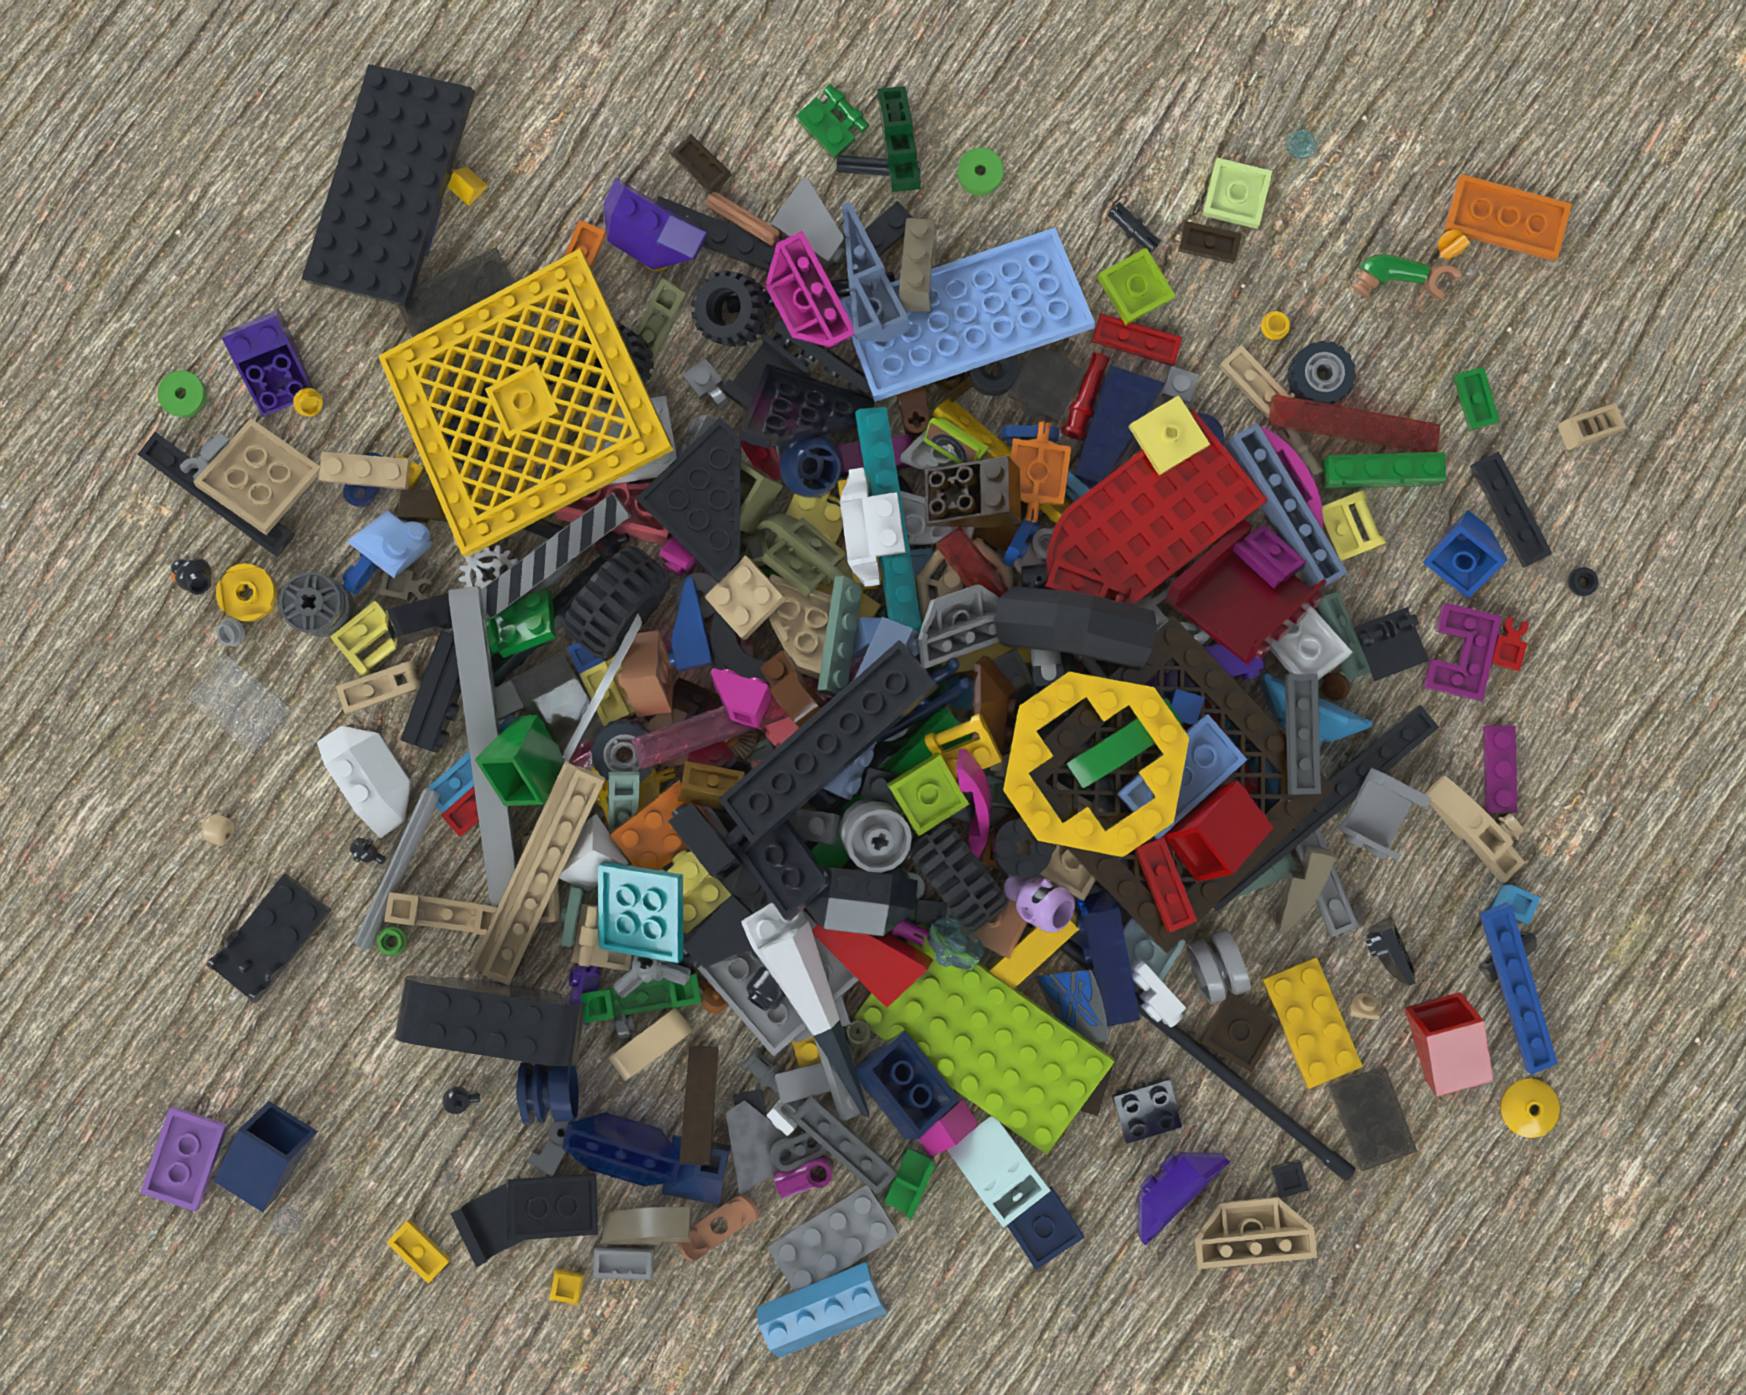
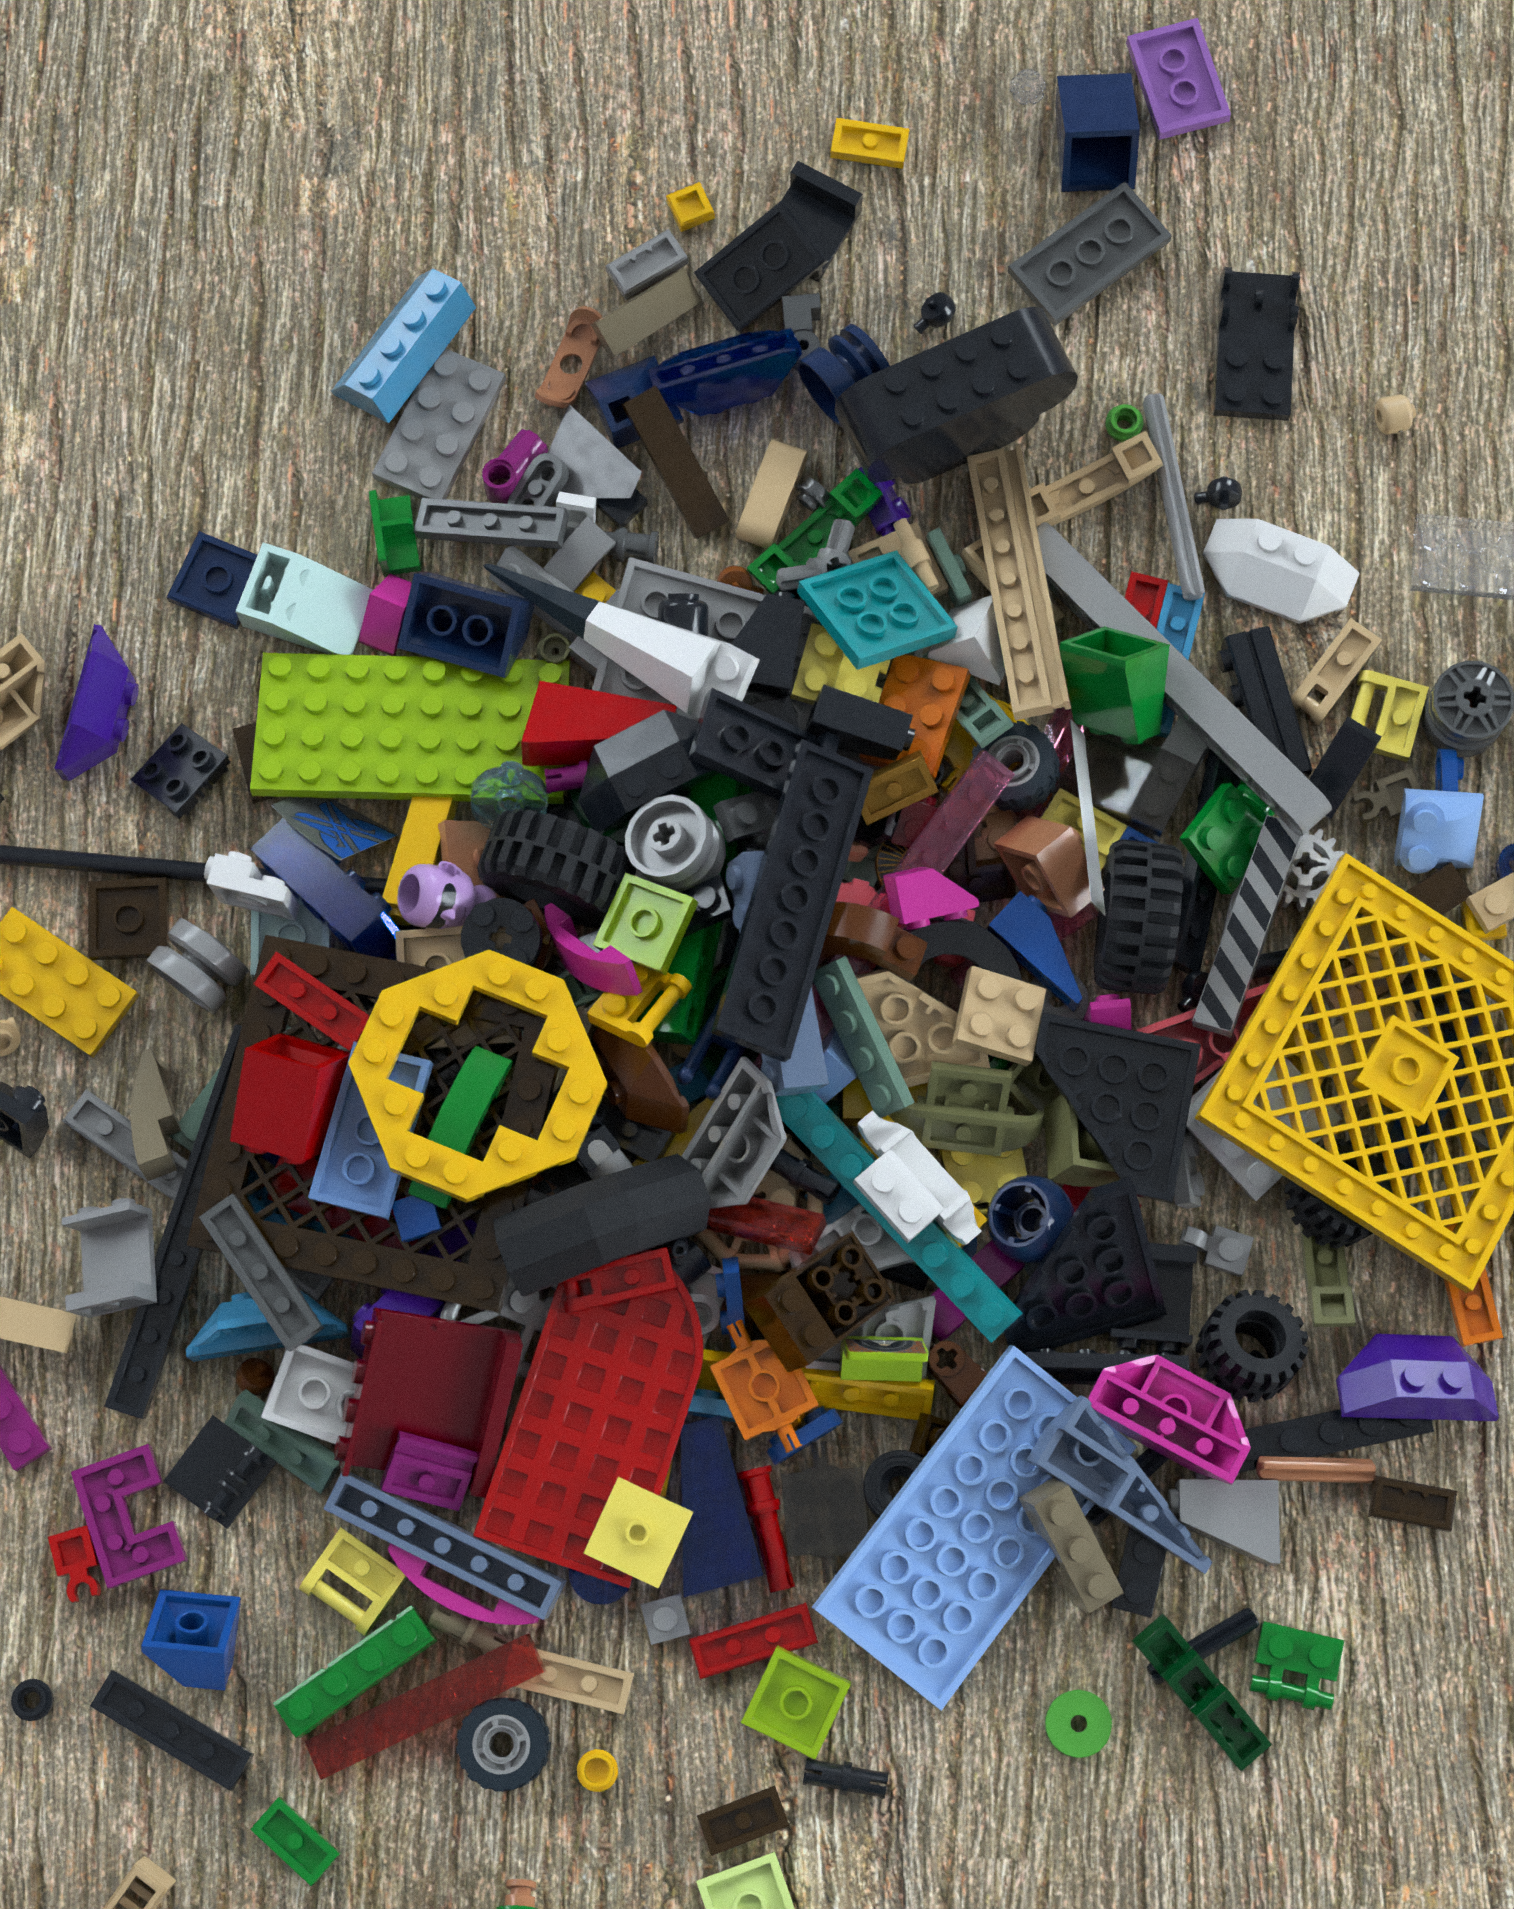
camera: 145 degrees right, 10 degrees down
(331, 1073) = (1089, 253): none -> dark grey plate
(928, 577) = (804, 1176): none -> black pin

